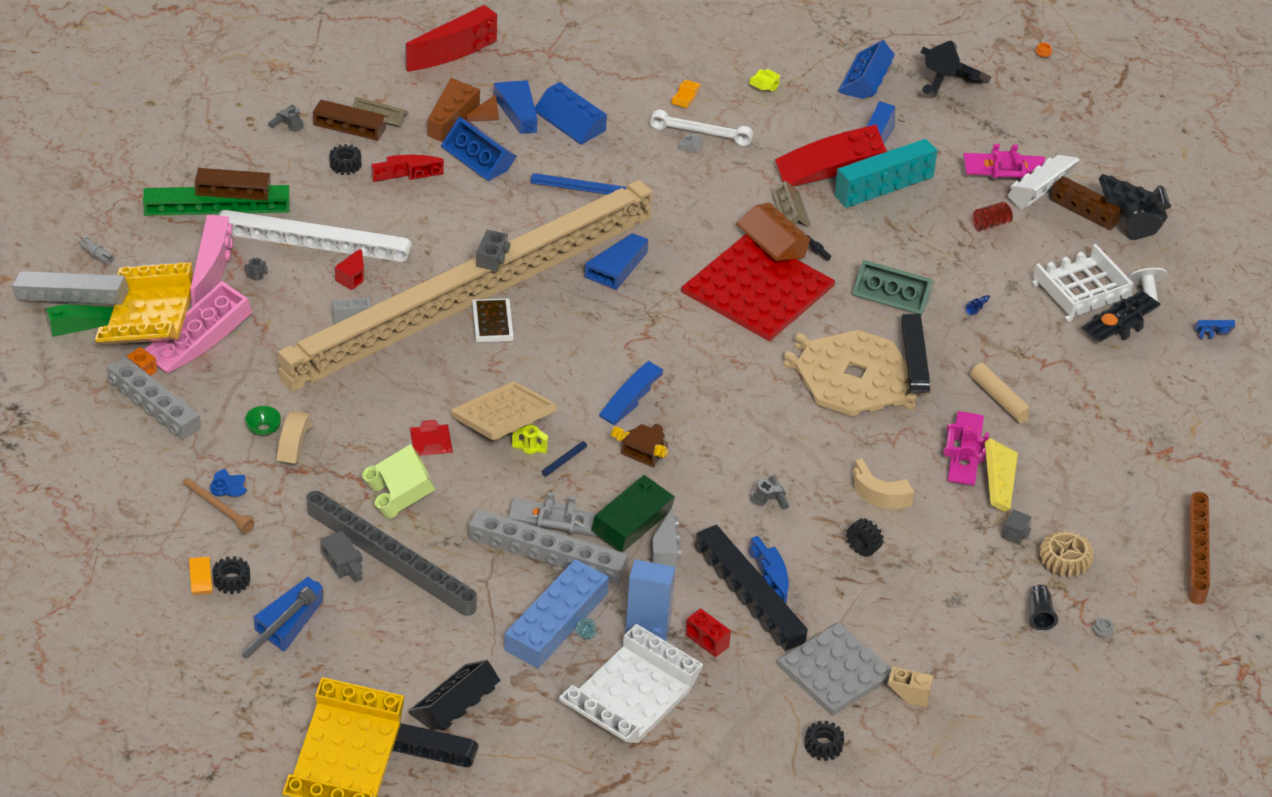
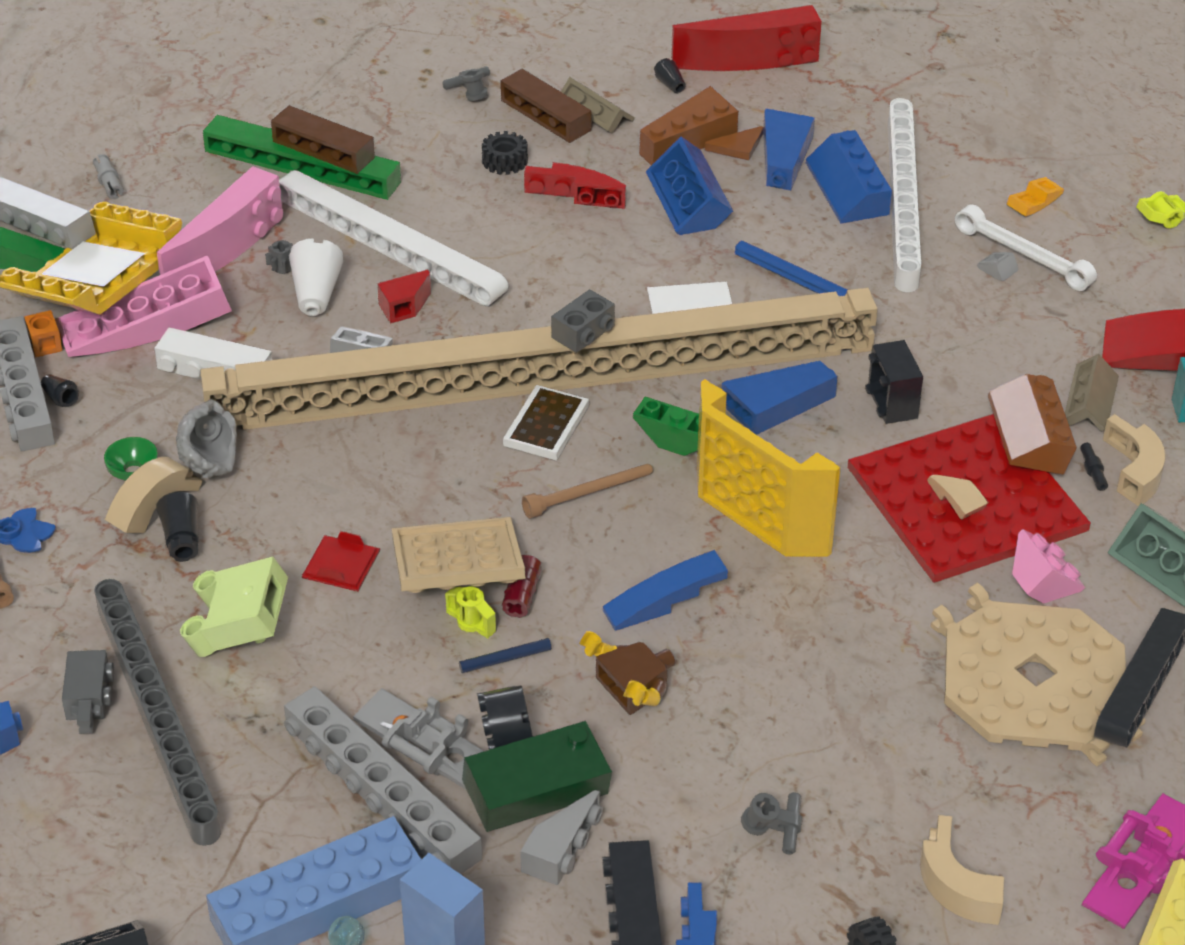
camera: 30 degrees right, 0 degrees up
(148, 308) = (93, 263): none -> white sticker
(184, 393) = (60, 390): none -> black cone
(259, 345) = (189, 352): none -> white brick
(289, 273) = (314, 273): none -> white cone
(304, 393) = (210, 448): none -> light grey hair
(324, 449) = (179, 524): none -> black plant
(413, 77) = (669, 74): none -> black cone
(522, 369) = (535, 504): none -> medium nougat piece
(523, 220) = (688, 296): none -> white sticker
(551, 424) = (520, 593): none -> dark red axle
(576, 299) = (668, 425): none -> green slope
(596, 489) = (505, 717): none -> black brick
(617, 124) = (904, 196): none -> white beam
(651, 312) = (761, 486): none -> yellow slope
(683, 232) = (894, 382): none -> black container
(759, 285) = (960, 493): none -> tan slope
(827, 313) = (1042, 569): none -> bright pink slope
(841, 231) = (1145, 450): none -> tan arch

